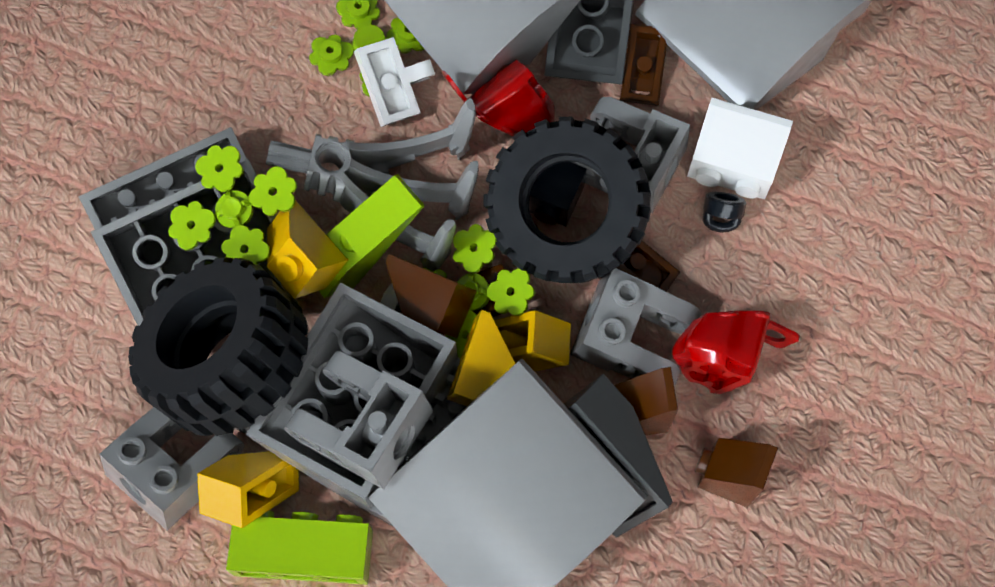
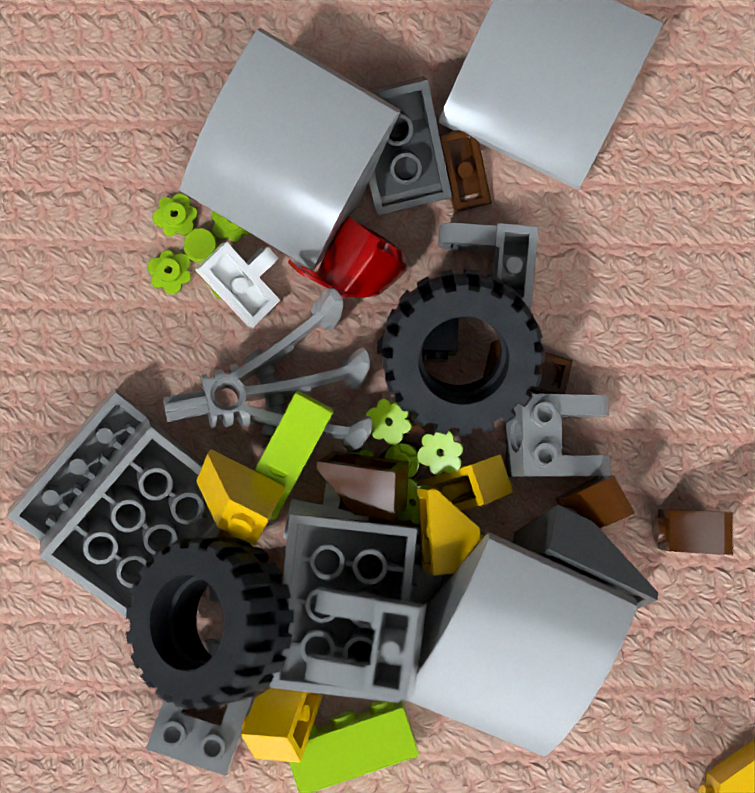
camera: 20 degrees left, 15 degrees up
(234, 207) = (160, 483): lime plant -> none
(723, 206) = (590, 287): black tile -> none
(726, 347) = (646, 425): red piece -> none
(739, 149) = (587, 229): white slope -> none

